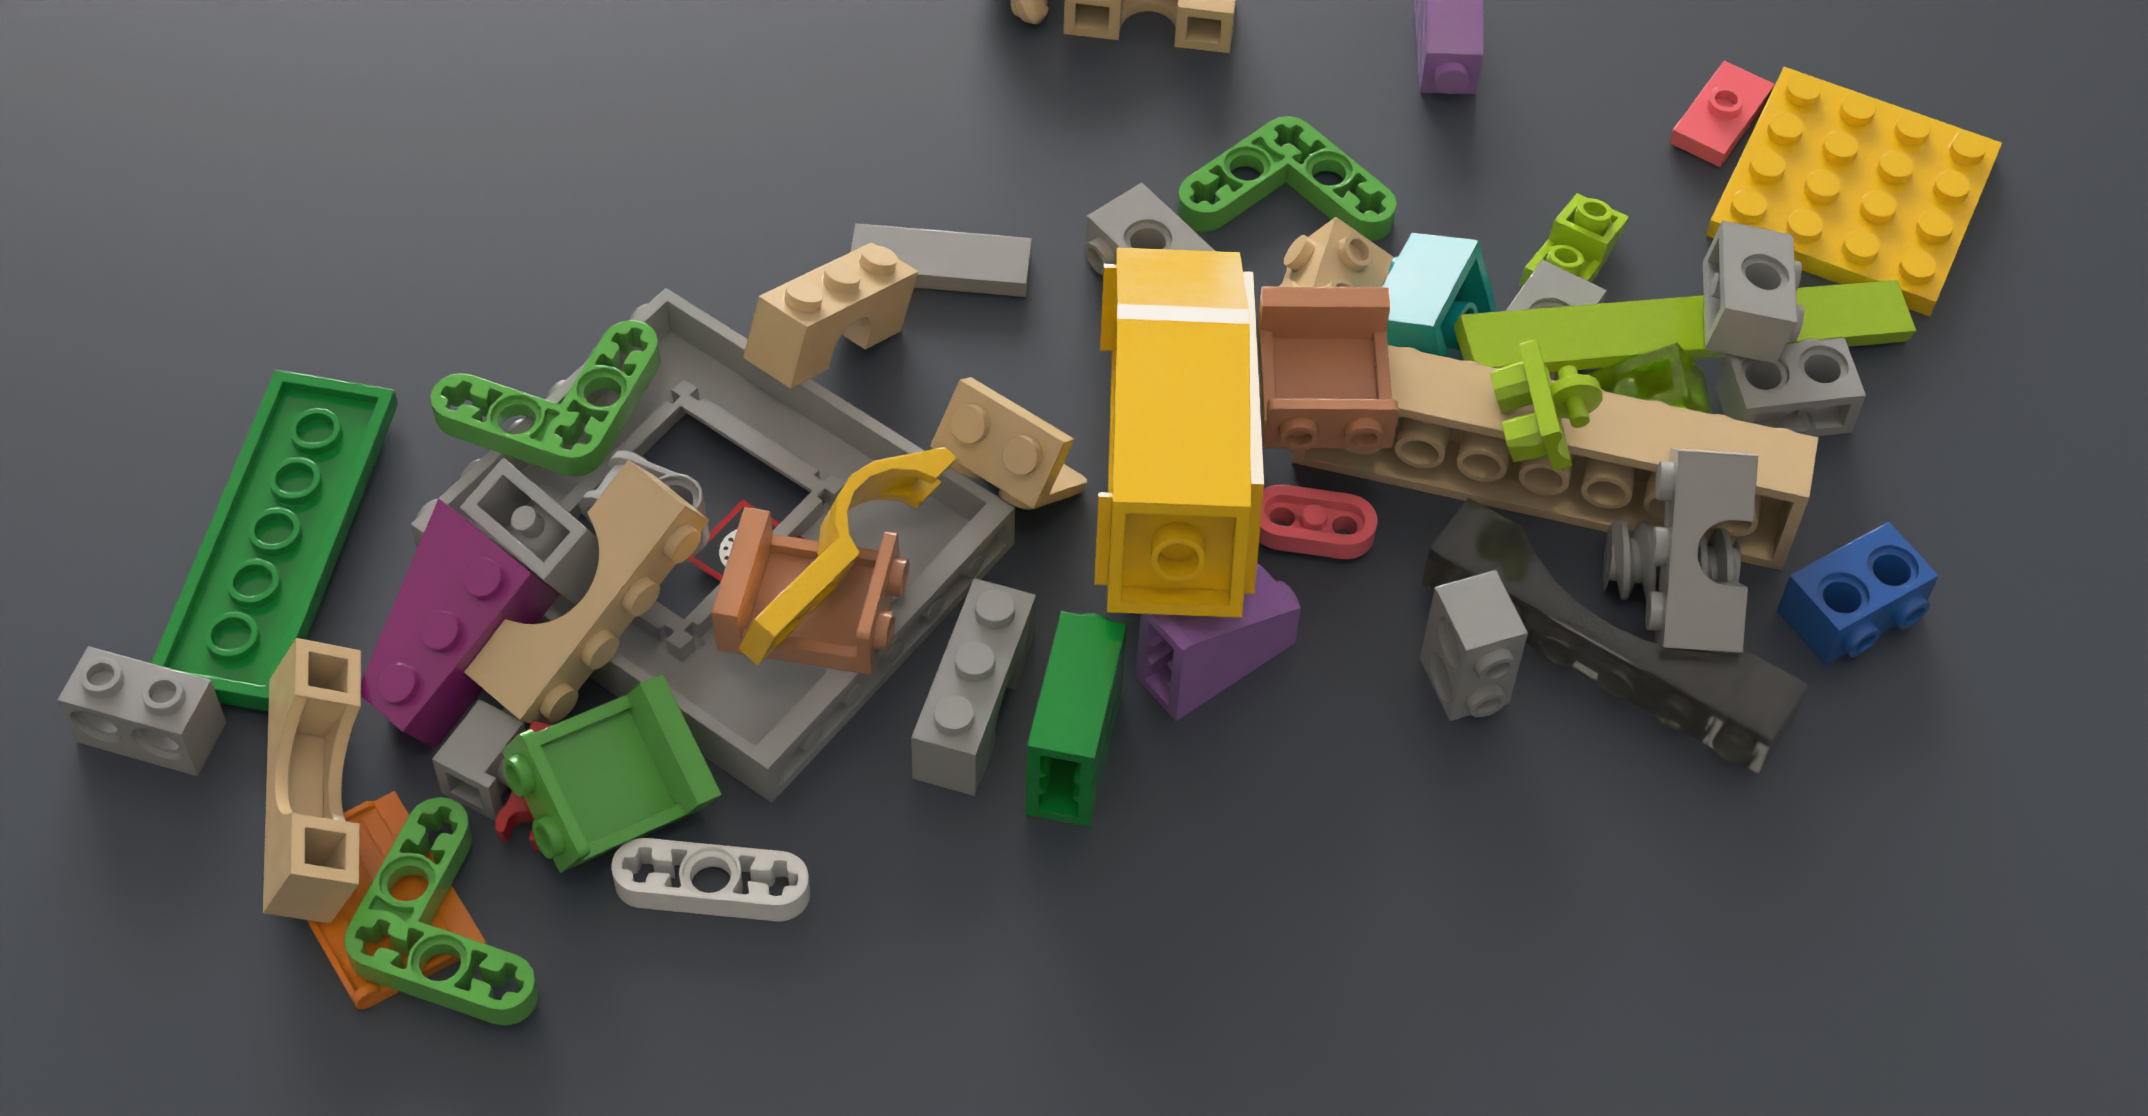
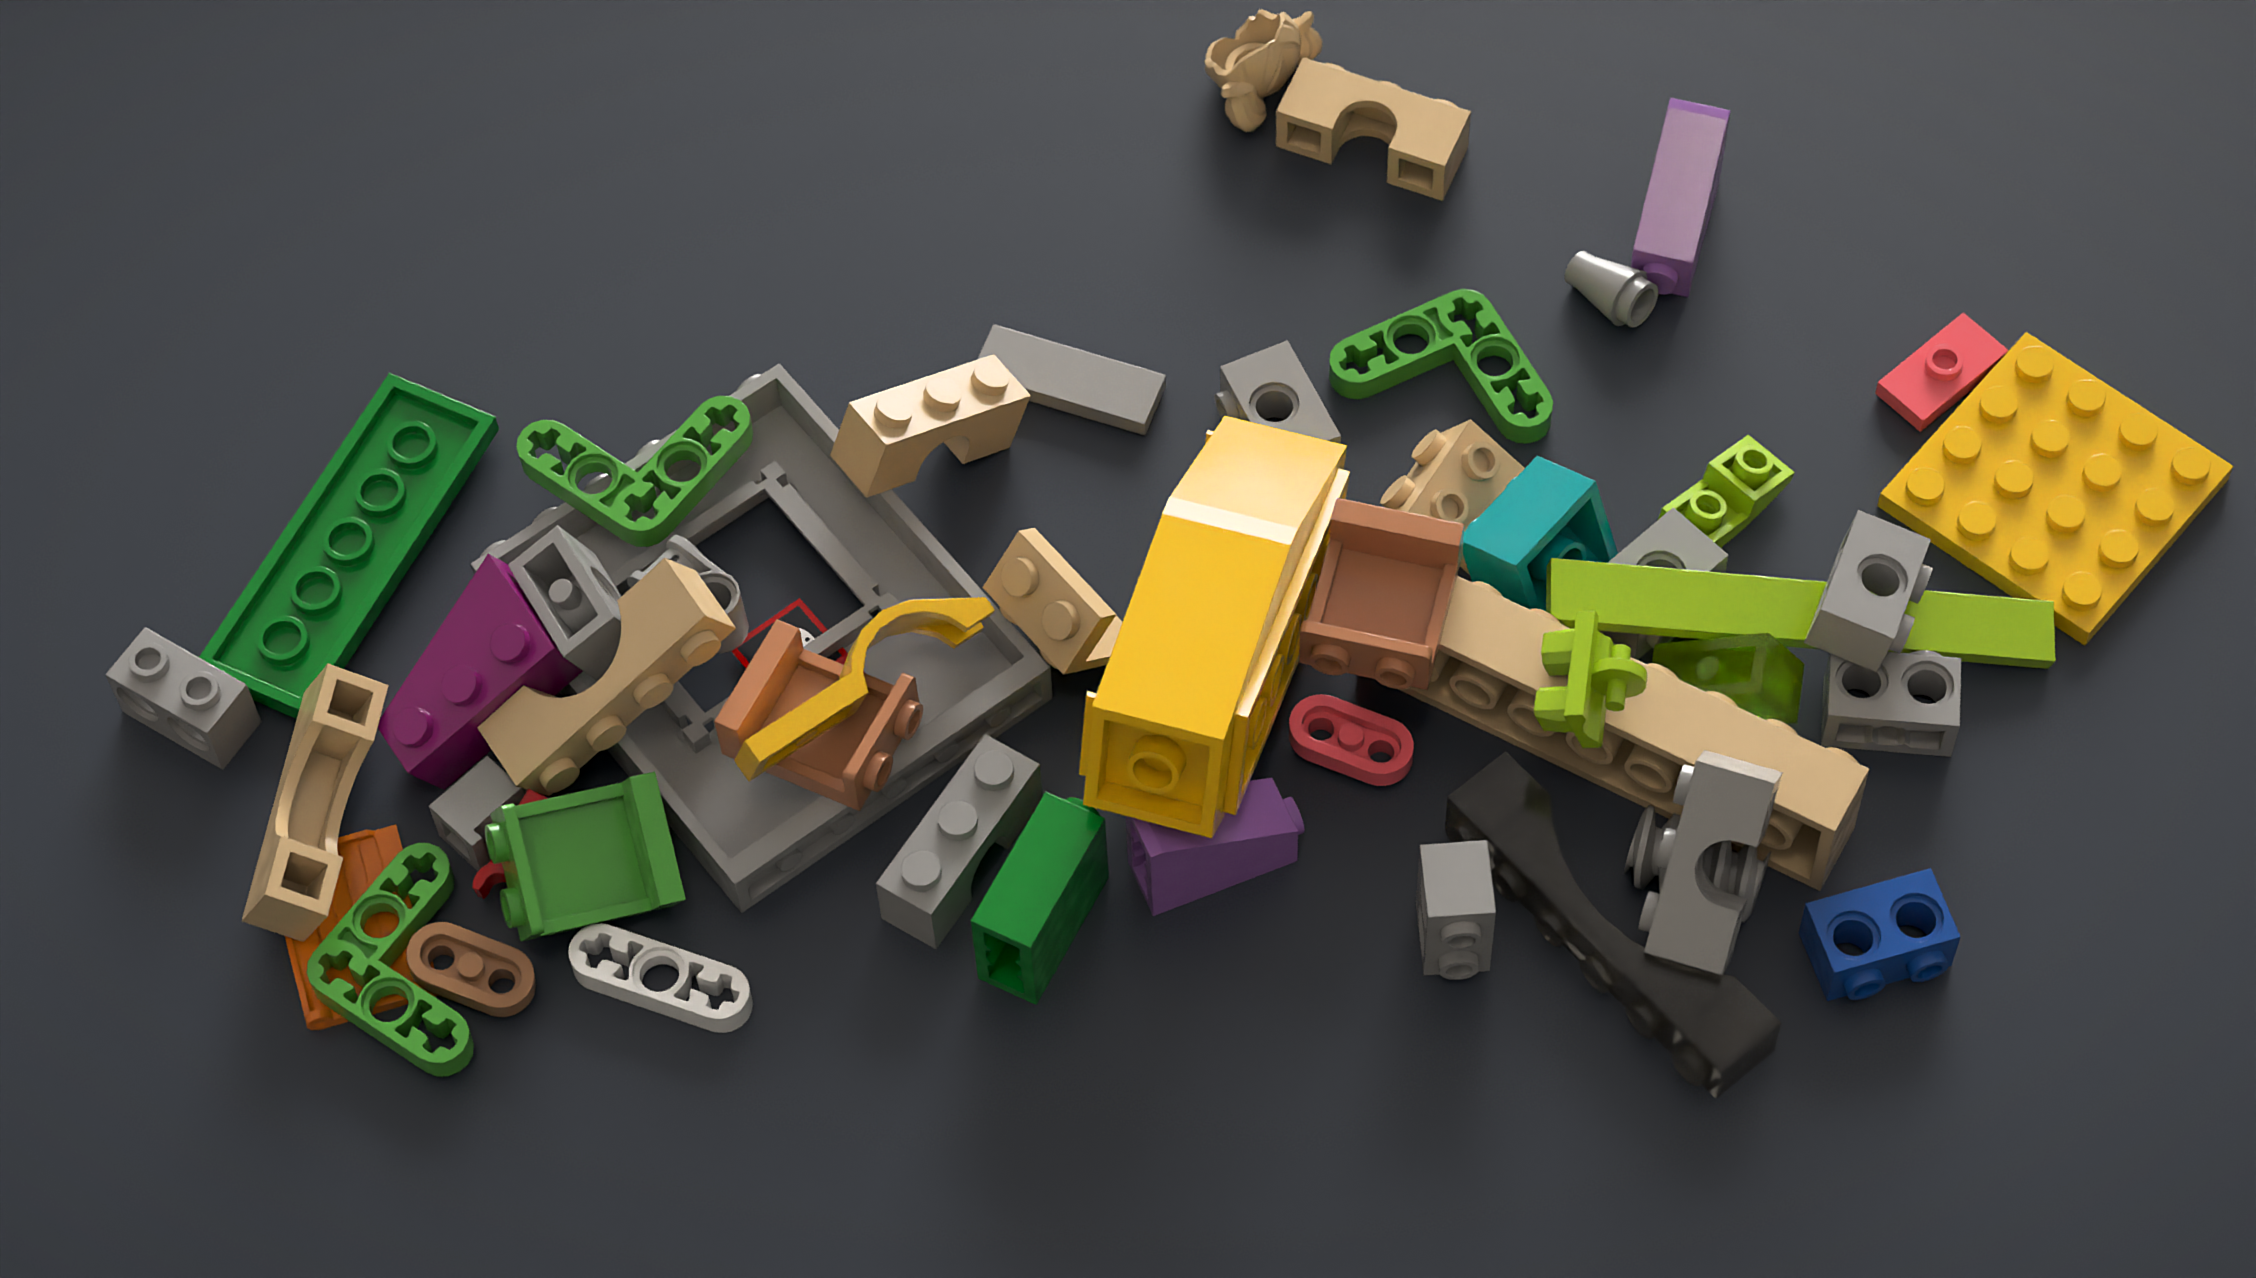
camera: 20 degrees right, 5 degrees up
(518, 907) = (475, 968): none -> medium nougat plate
(1412, 93) = (1613, 288): none -> light grey cone

